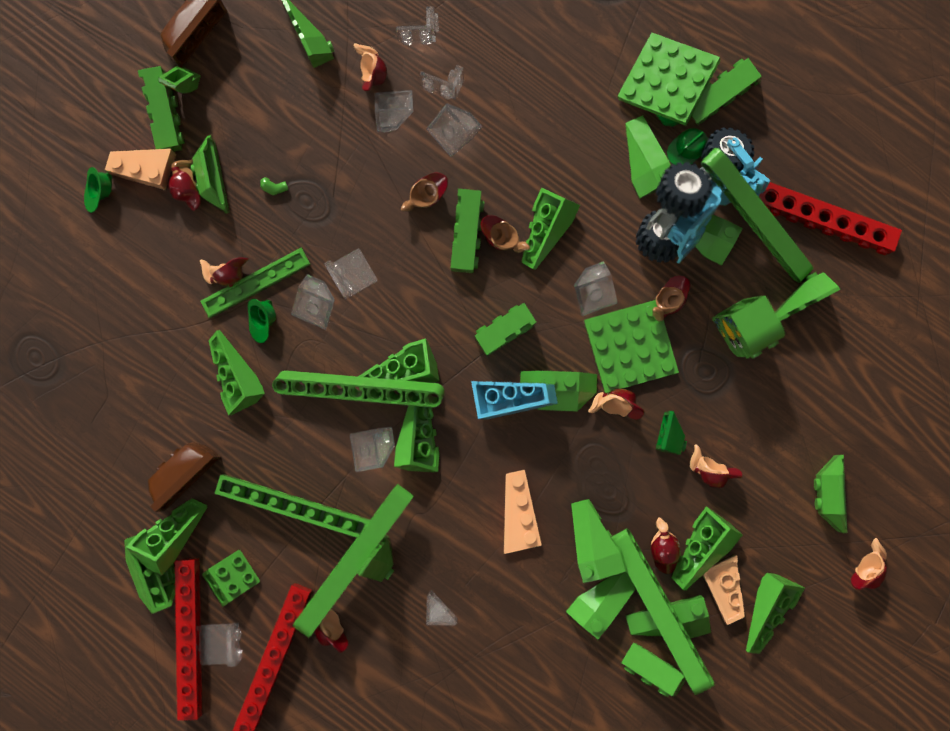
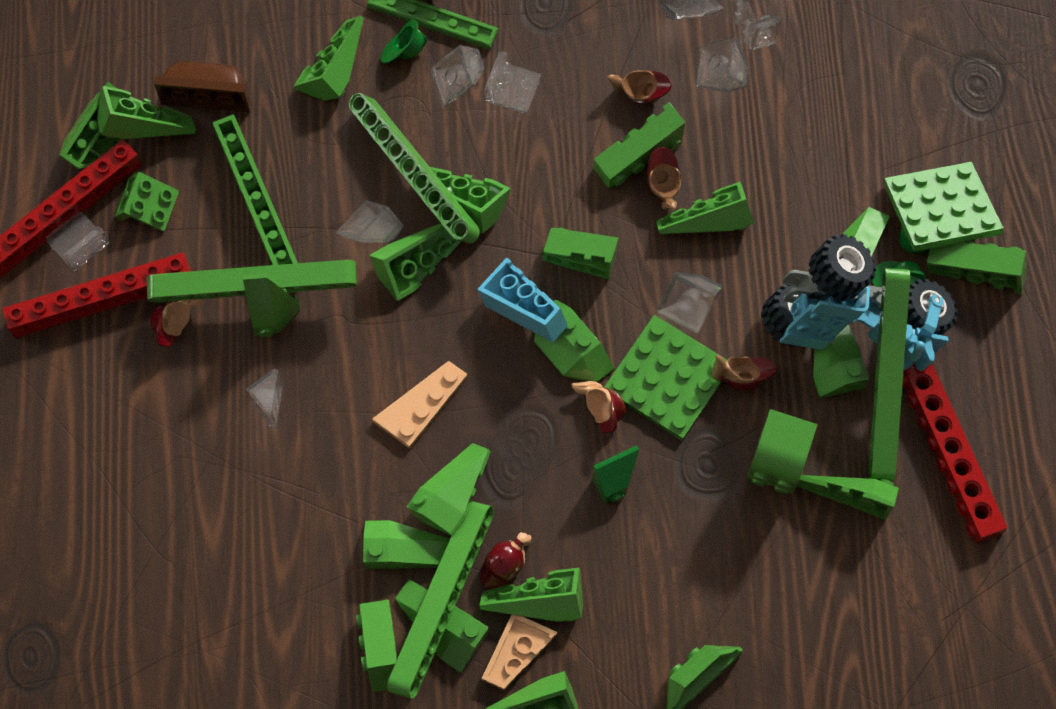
camera: 50 degrees right, 15 degrees down
(711, 472) = (616, 541): hair -> none

